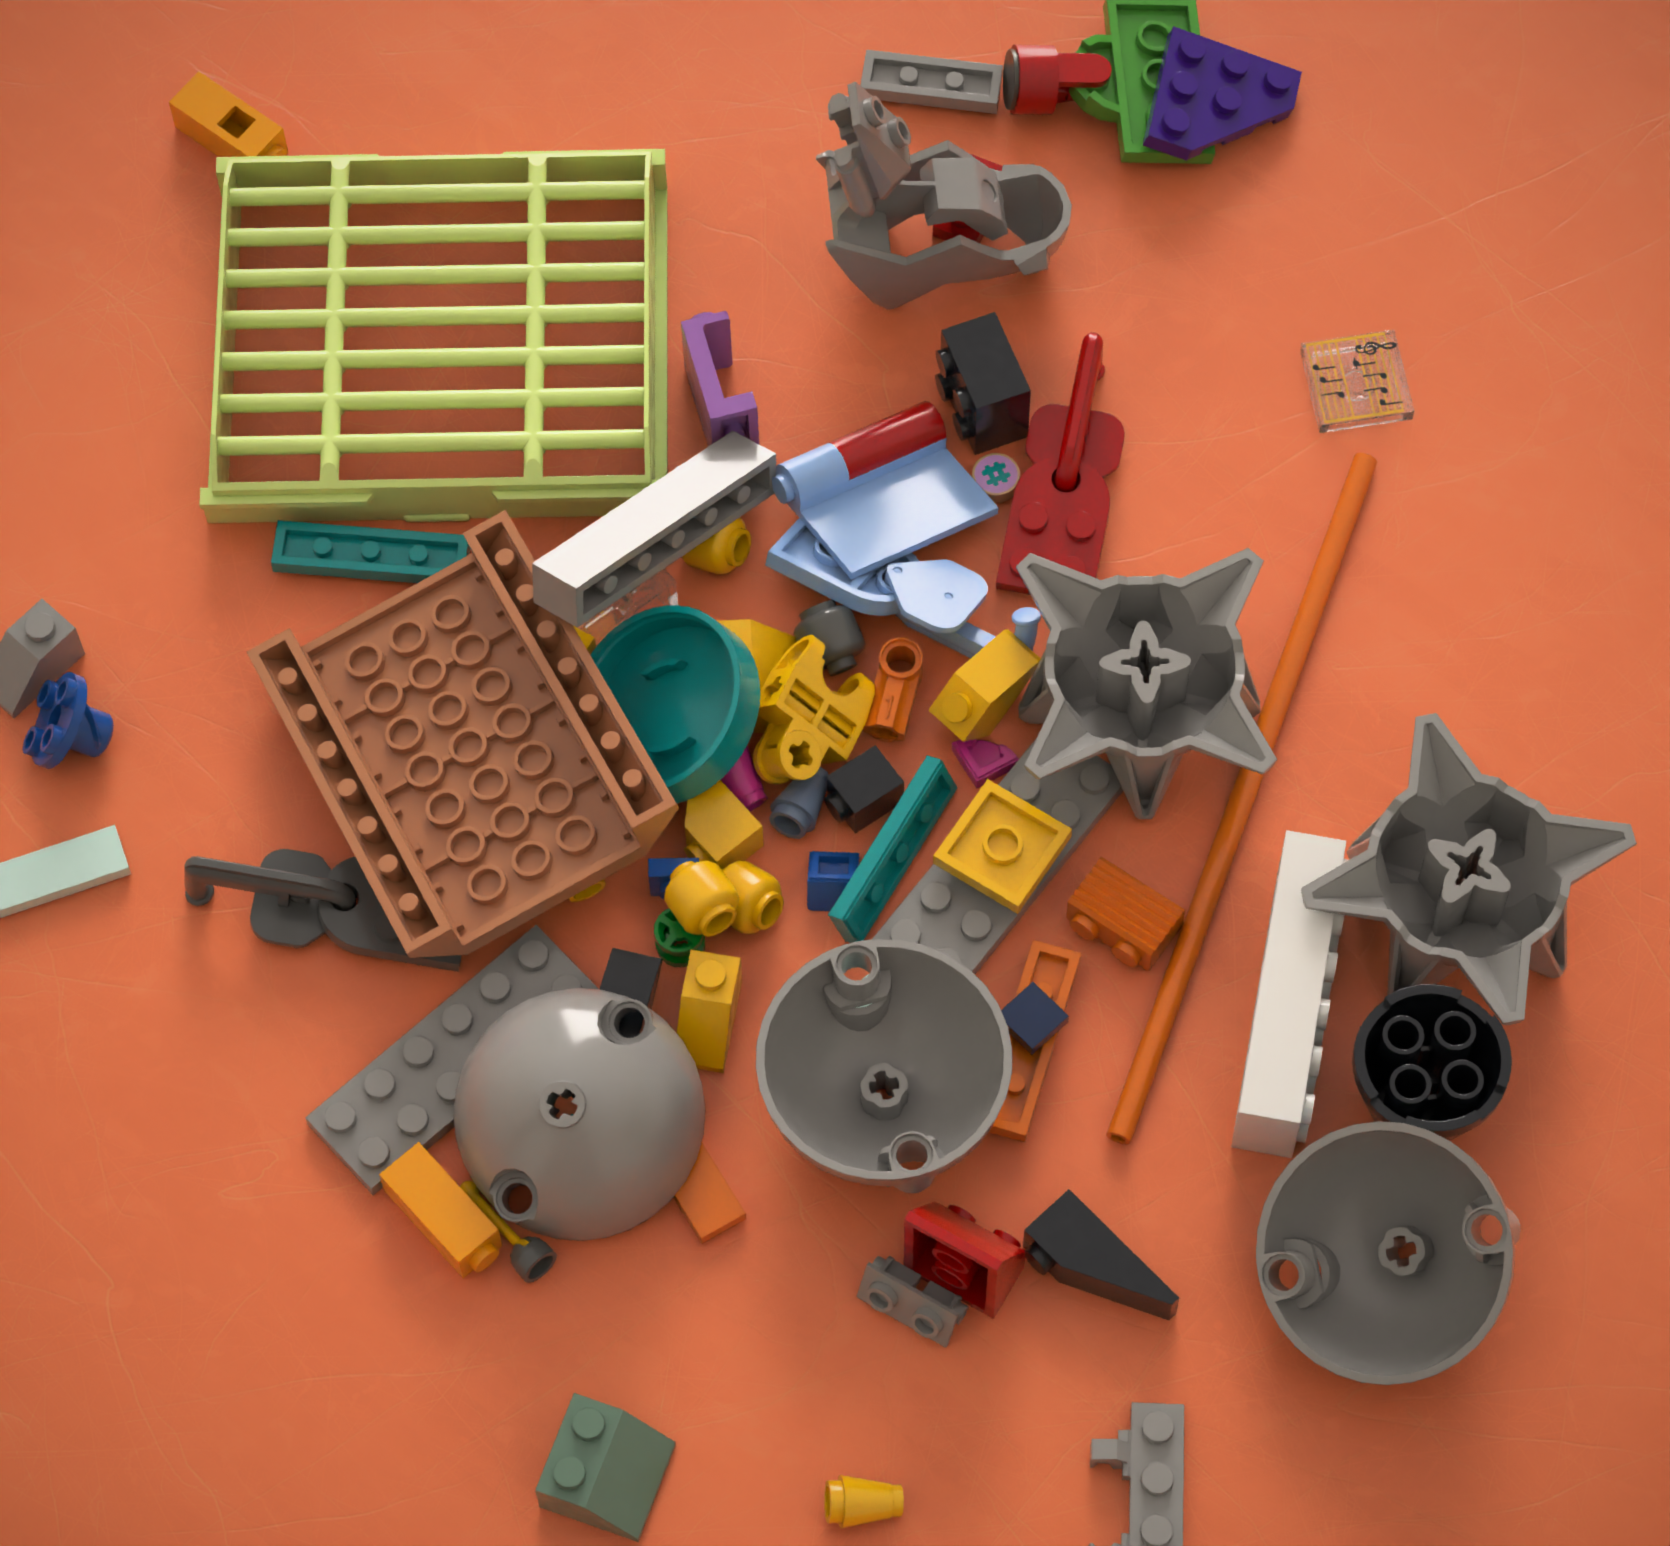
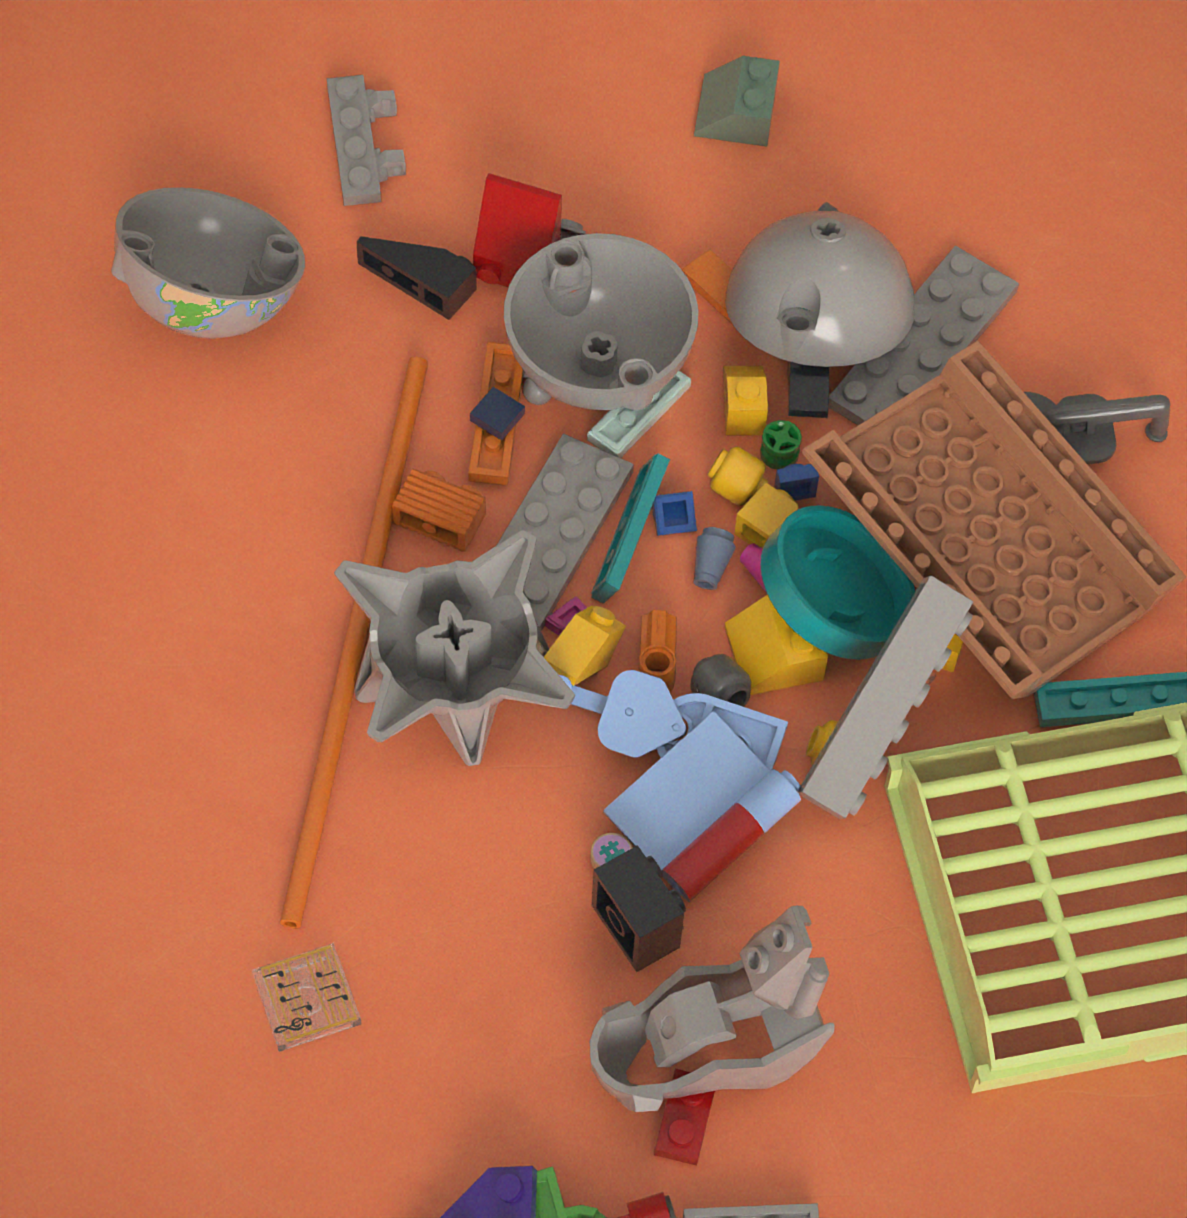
camera: 165 degrees right, 5 degrees down
(442, 1211) = (916, 239): light orange brick -> none
(701, 898) = (769, 440): yellow head -> none
(705, 350) = (860, 835): medium lavender panel -> none
(806, 716) = (722, 603): yellow piece -> none
(861, 1501) = (557, 109): yellow cone -> none
(863, 790) = (664, 570): black brick -> none
(1002, 846) = (554, 518): yellow plate -> none
(1062, 498) = (549, 810): red plate -> none
(1290, 1004) = (299, 455): white brick -> none
(1431, 1060) = (188, 385): black cone -> none
(1468, 876) = (172, 527): light grey piece -> none

